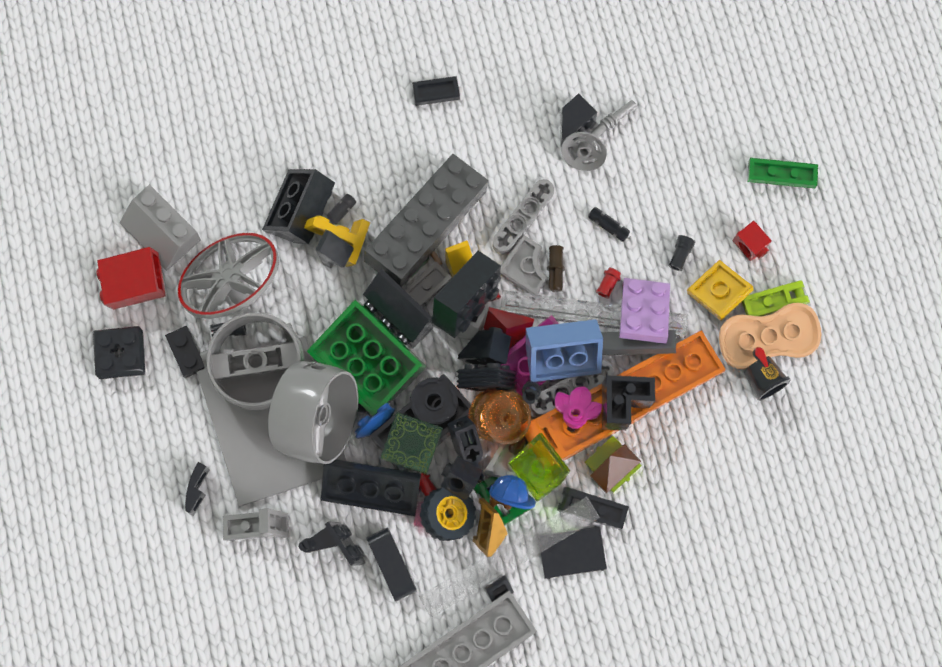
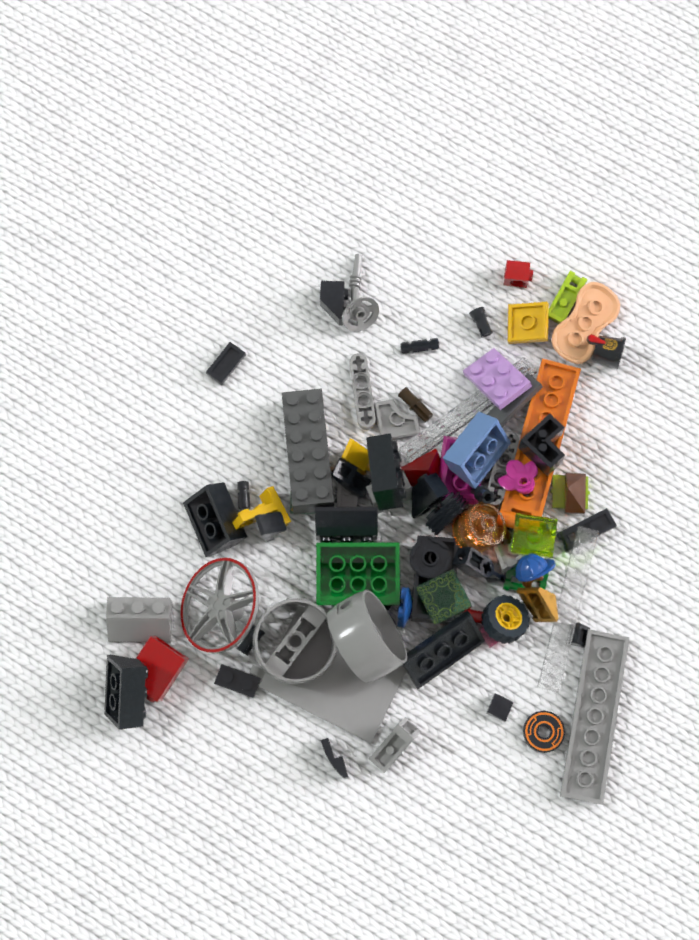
camera: 40 degrees left, 0 degrees up
(87, 272) = (125, 691): none -> black slope
(129, 363) = (194, 709): black brick -> none
(331, 536) = (450, 703): black plate -> none
(371, 581) = (499, 707): none -> black slope
(376, 627) = (552, 722): none -> black tile
(391, 564) = (502, 684): black beam -> none
(436, 271) = (348, 477): none -> black slope
(460, 477) = (493, 588): black brick -> none
(575, 554) = (604, 569): black piece -> none
(608, 282) = (456, 382): red pin -> none
(782, 173) = (492, 214): green plate -> none

